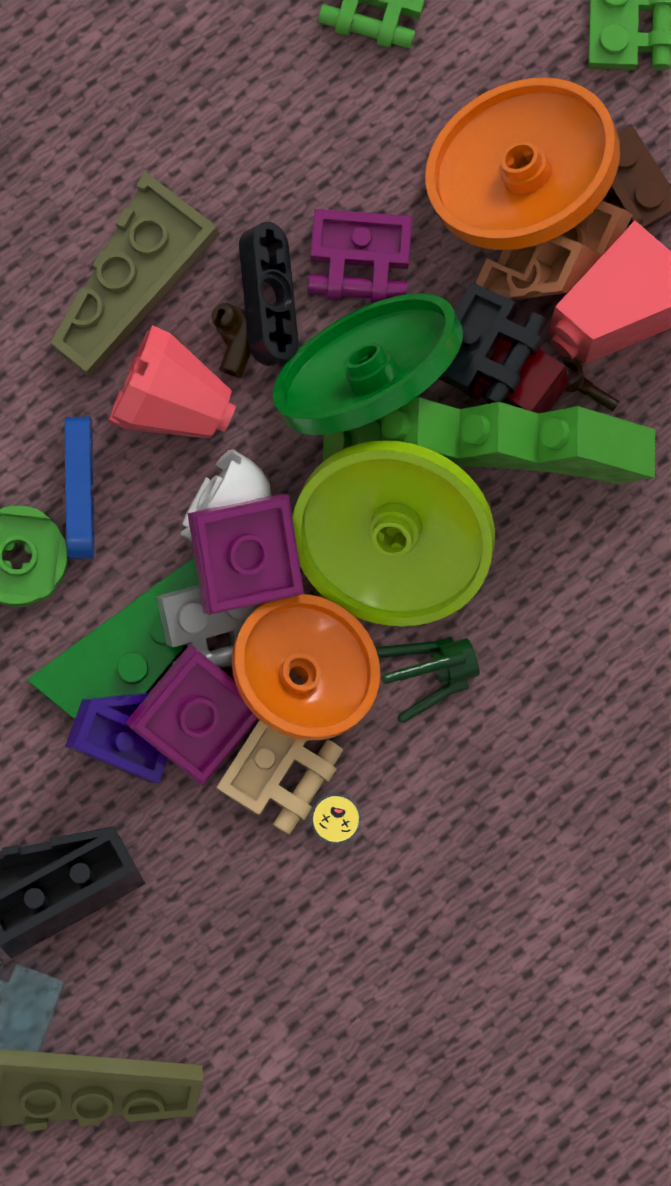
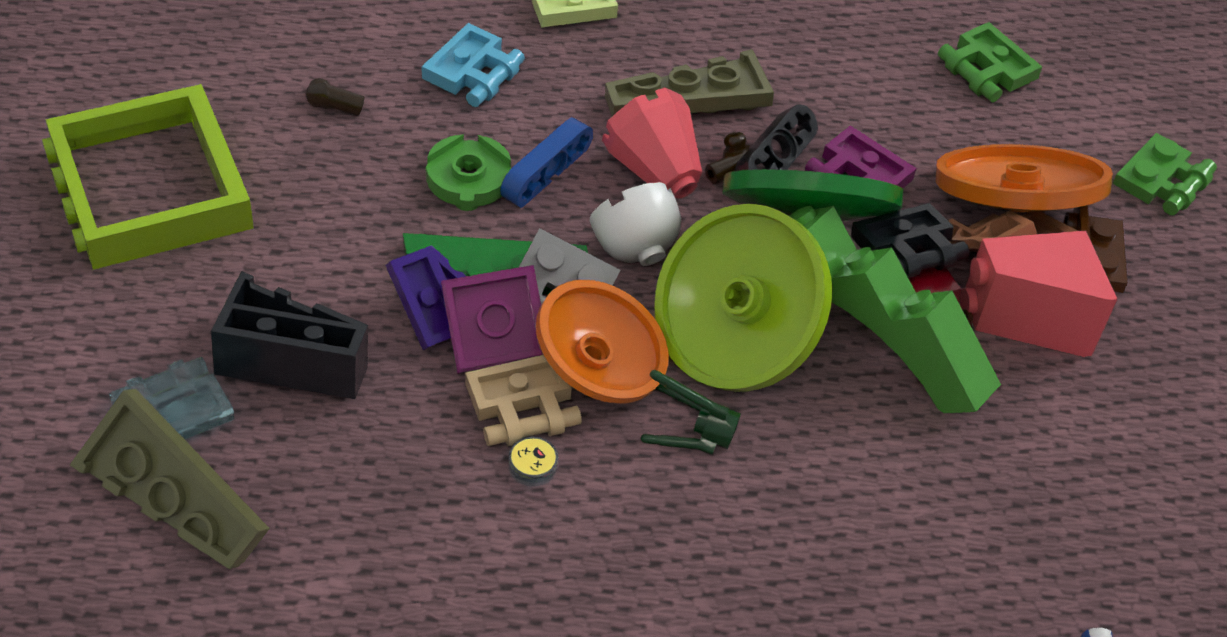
camera: 35 degrees right, 30 degrees down
(245, 553) = (623, 239): magenta plate -> none

